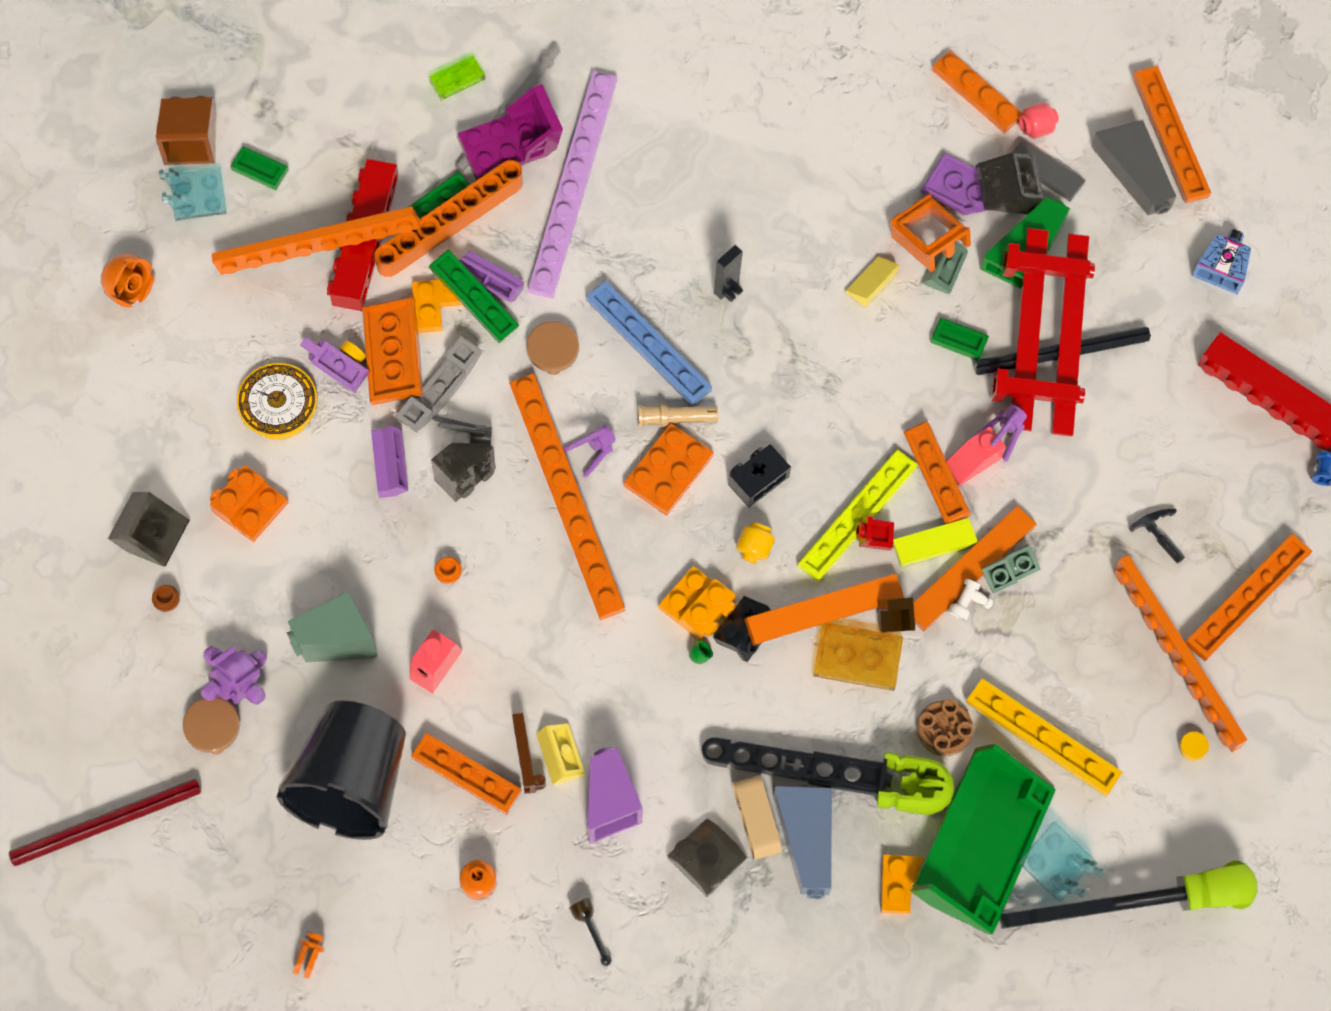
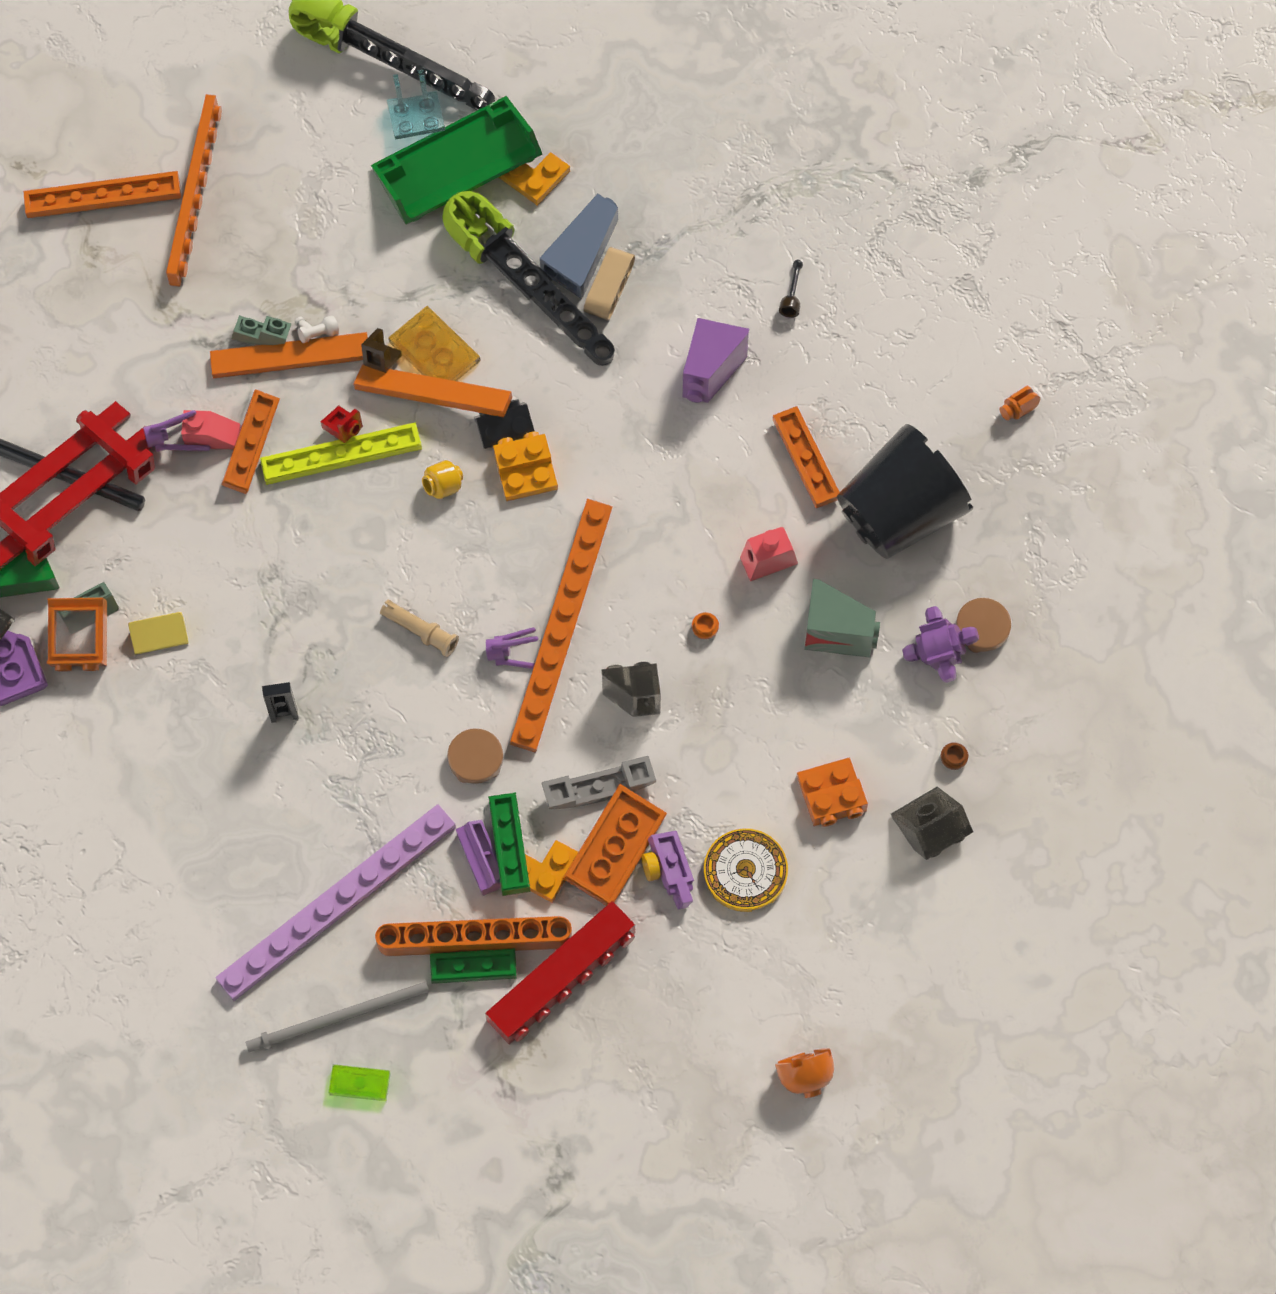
camera: 140 degrees left, 0 degrees up
(104, 822) = (1116, 606): dark red axle -> none
(187, 130) = (649, 1192): dark orange slope -> none
(195, 192) = (683, 1124): clear light blue plate -> none
(259, 168) = (607, 1114): green tile -> none
(316, 240) = (625, 983): orange plate -> none
(389, 461) = (688, 748): medium lavender piece -> none
(478, 433) = (598, 718): dark grey plant -> none
(480, 871) = (854, 370): orange head -> none
(523, 135) = (352, 974): magenta bracket -> none
(530, 782) = (760, 419): reddish brown hinge -> none
(560, 753) = (721, 428): light yellow slope -> none
(649, 343) = (392, 705): medium blue plate -> none
(668, 469) = (461, 590): orange plate -> none
(700, 652) = (554, 427): green hinge -> none
(707, 857) = (668, 284): clear smoke slope -> none
(752, 487) = (383, 523): black brick -> none
(934, 542) = (300, 392): neon yellow tile -> none
(945, 728) = (414, 257): medium nougat tile -> none
(959, 339) = (132, 537): green tile -> none
(1044, 737) = (348, 201): yellow plate -> none
(1162, 539) = (123, 293): black piece -> none
(1194, 746) = (243, 127): yellow tile -> none

